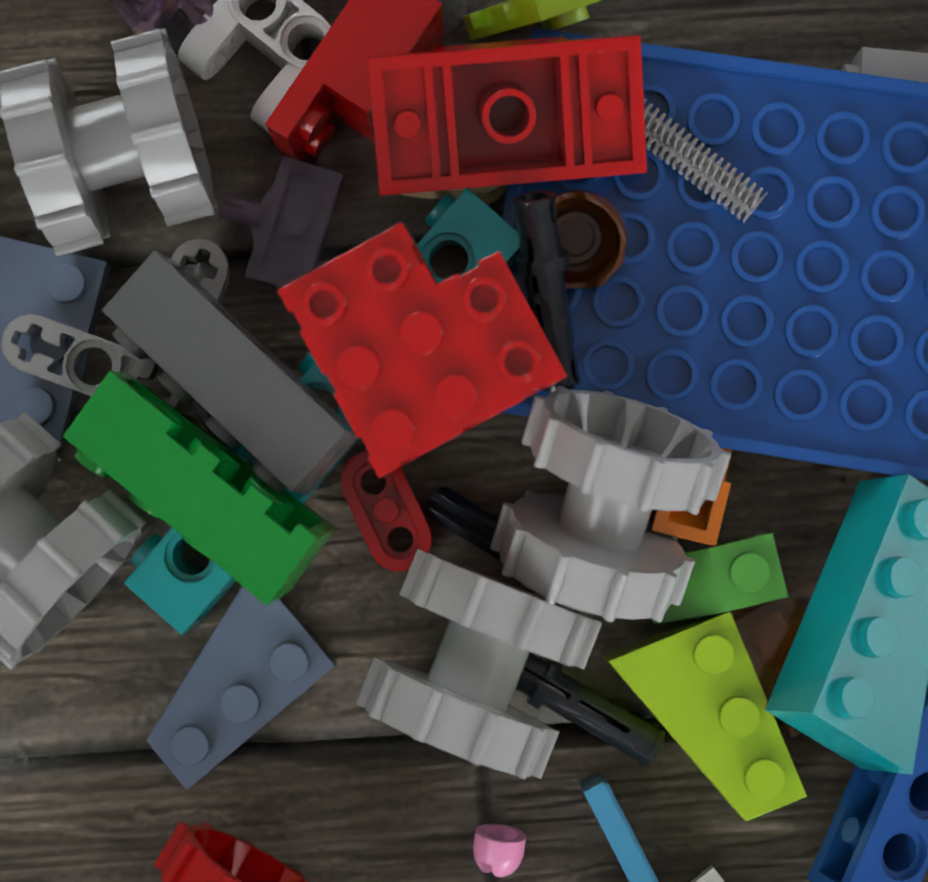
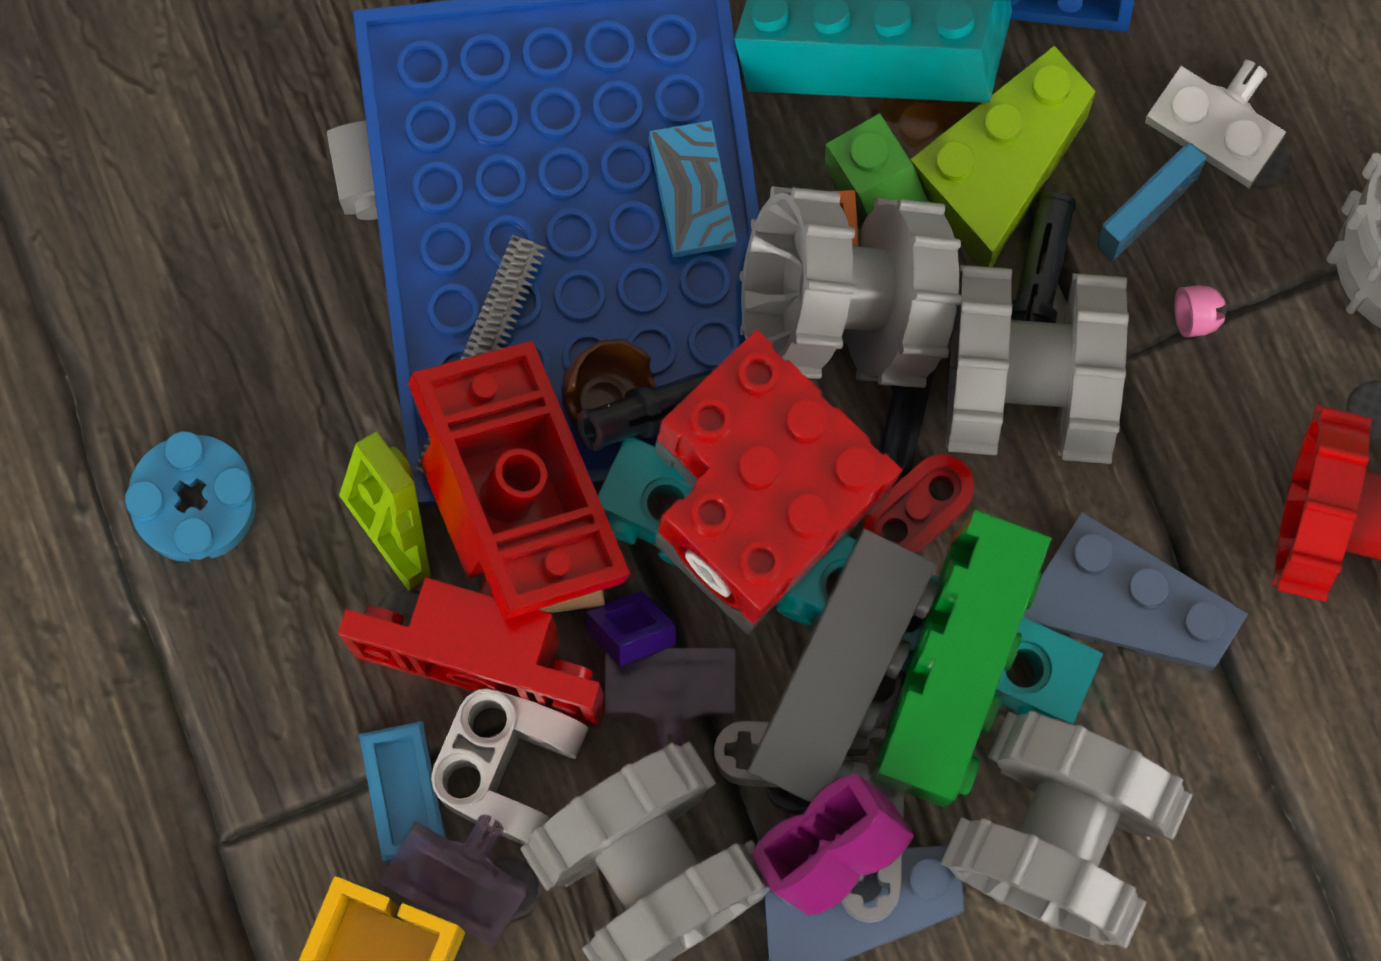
camera: 105 degrees left, 10 degrees down
(63, 309) = (822, 854): none -> magenta brick
(353, 204) = (631, 628): none -> dark purple tile
(766, 386) = (692, 189): none -> tile

